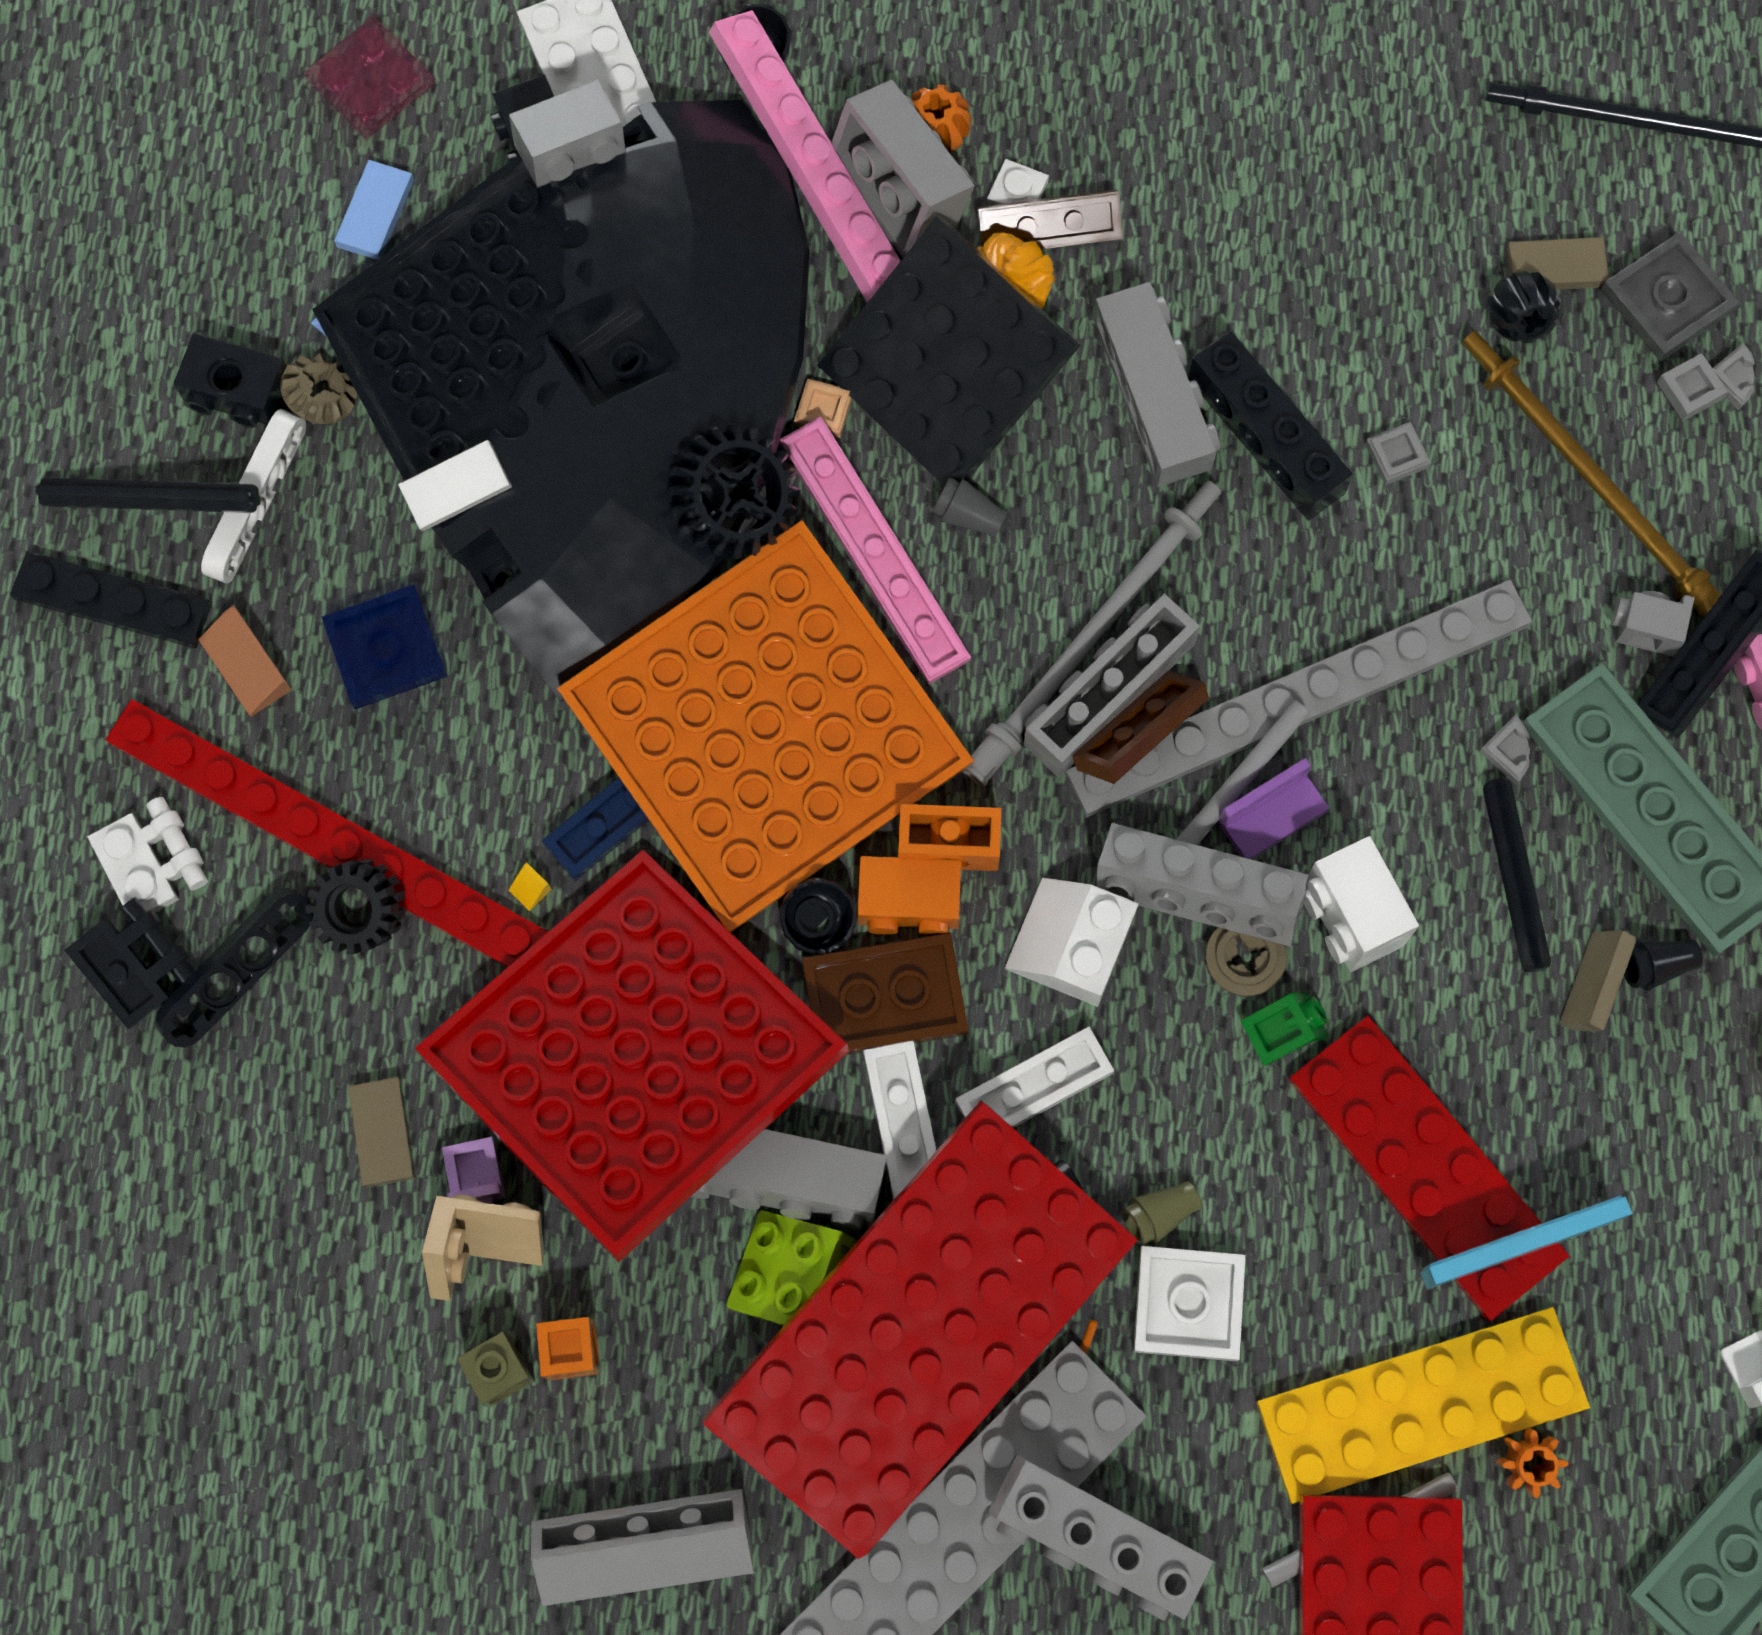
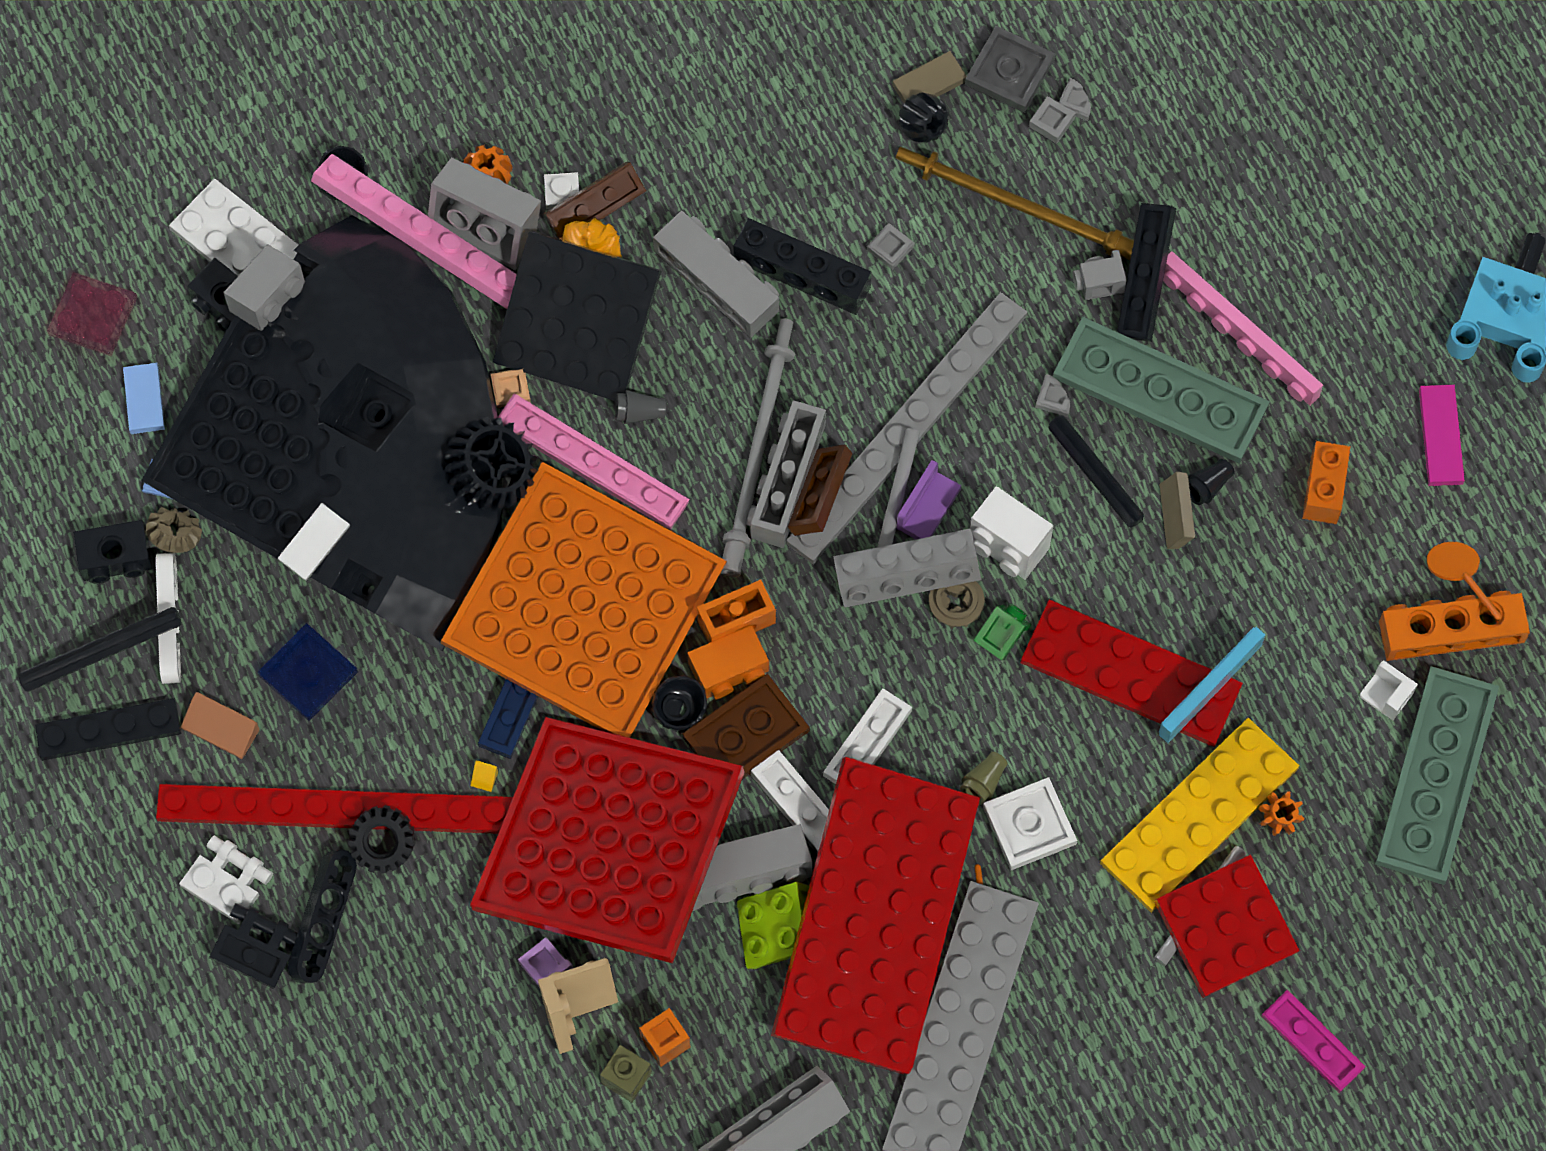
camera: 30 degrees left, 5 degrees down
(381, 1132) = (472, 971): dark tan tile -> none
(1072, 938) = (844, 640): white slope -> none
(1100, 1538) = (1047, 983): light grey brick -> none

